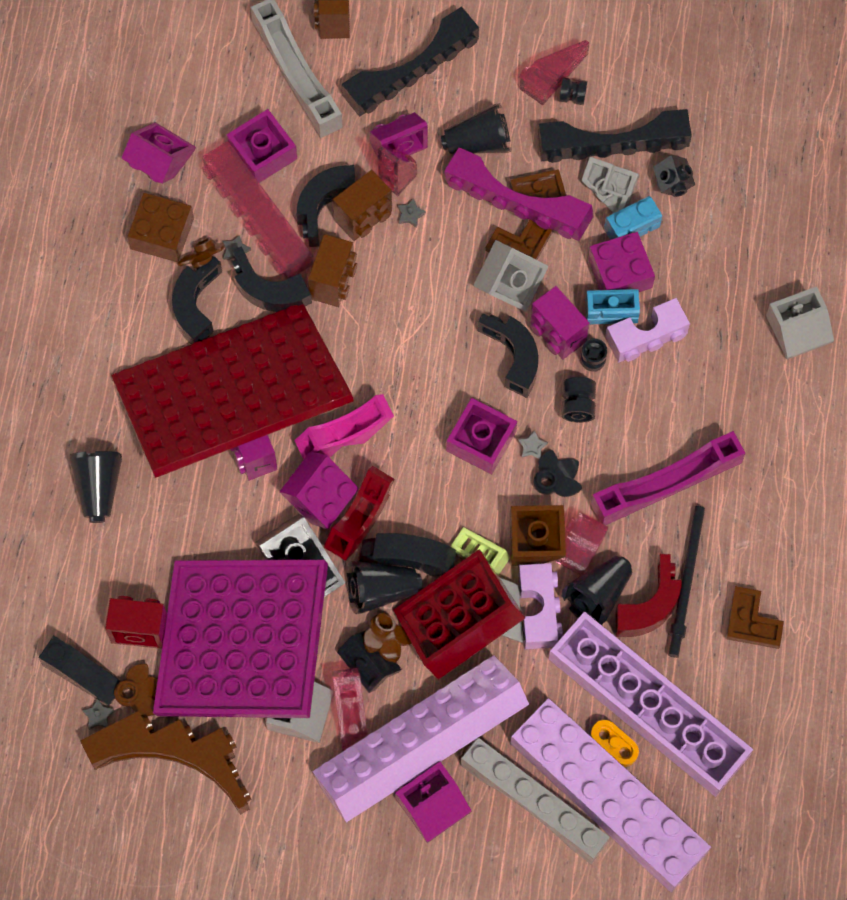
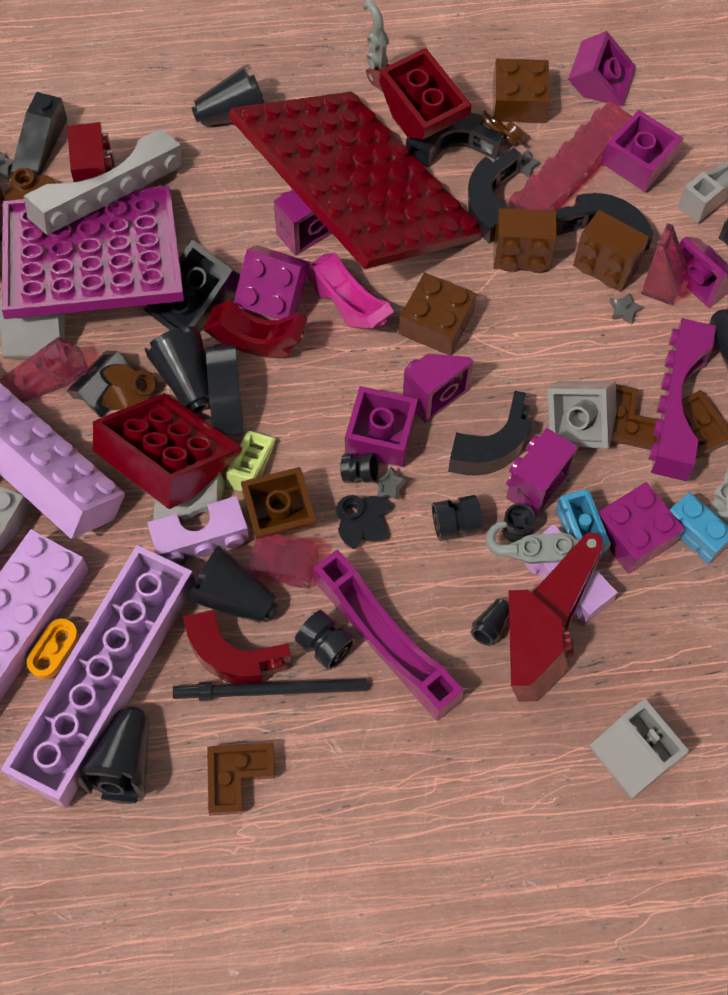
camera: 75 degrees right, 5 degrees down
(159, 313) = (415, 87): none -> dark red slope
(185, 653) = (64, 203): none -> light grey arch
(381, 362) = (437, 313): none -> reddish brown brick
(455, 383) = (436, 382): none -> magenta slope
(510, 469) = (359, 468): none -> black wheel
(661, 526) = (324, 639): none -> black wheel
(673, 400) = (490, 623): none -> black cone
(690, 361) = (542, 617): none -> dark red slope
(725, 700) = (119, 759): none -> black cone

